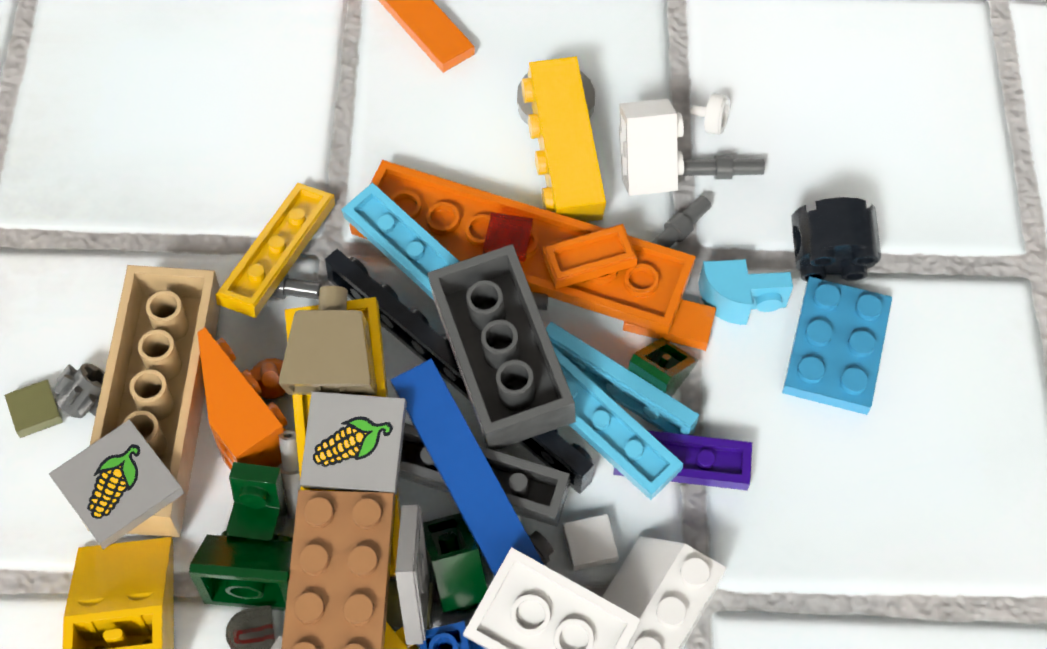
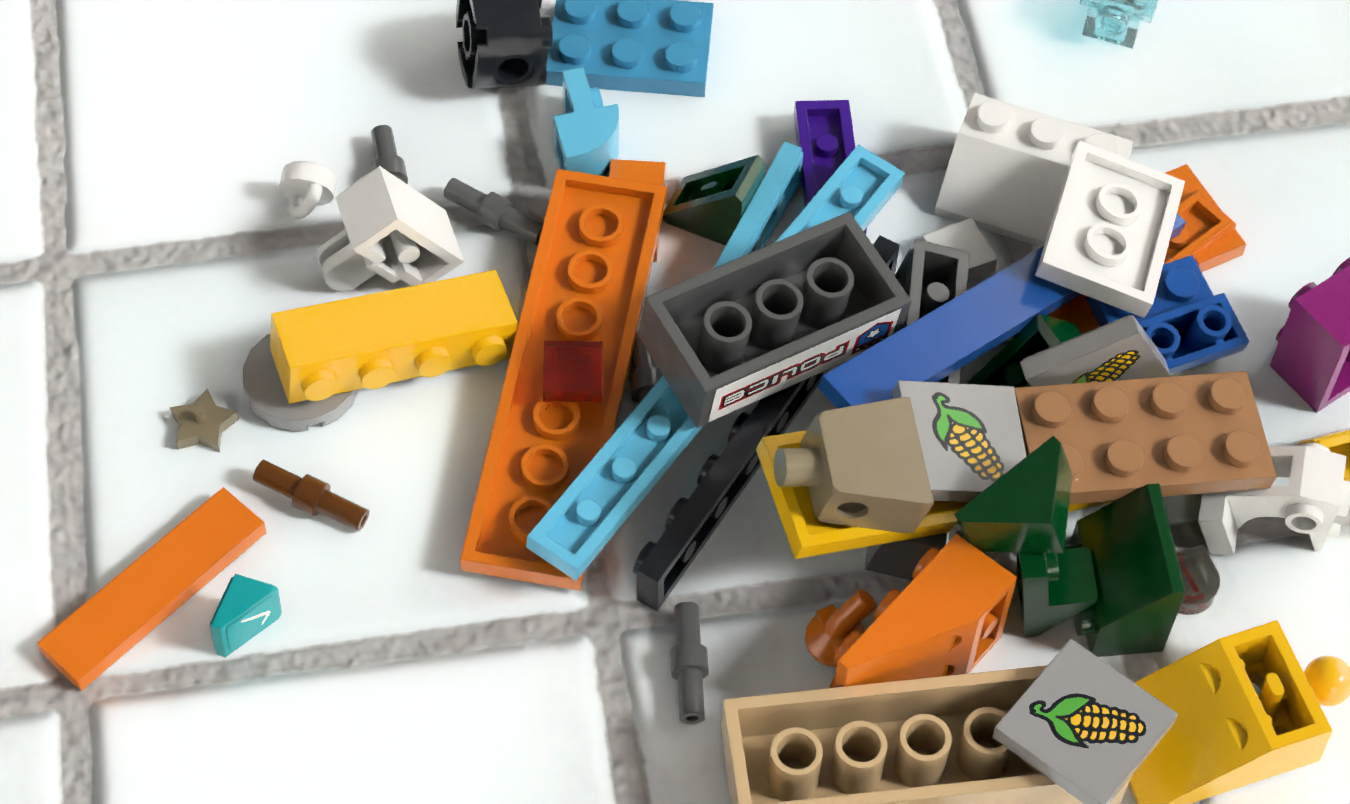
camera: 100 degrees left, 5 degrees down
(272, 464) = (1023, 507): none -> dark green slope
(275, 250) = (638, 662): yellow tile -> none
(377, 44) = (243, 613): none -> teal slope
(459, 93) = (311, 495): none -> reddish brown bar
(533, 45) = (202, 422): none -> dark tan piece
(589, 256) = (584, 277): orange tile -> none

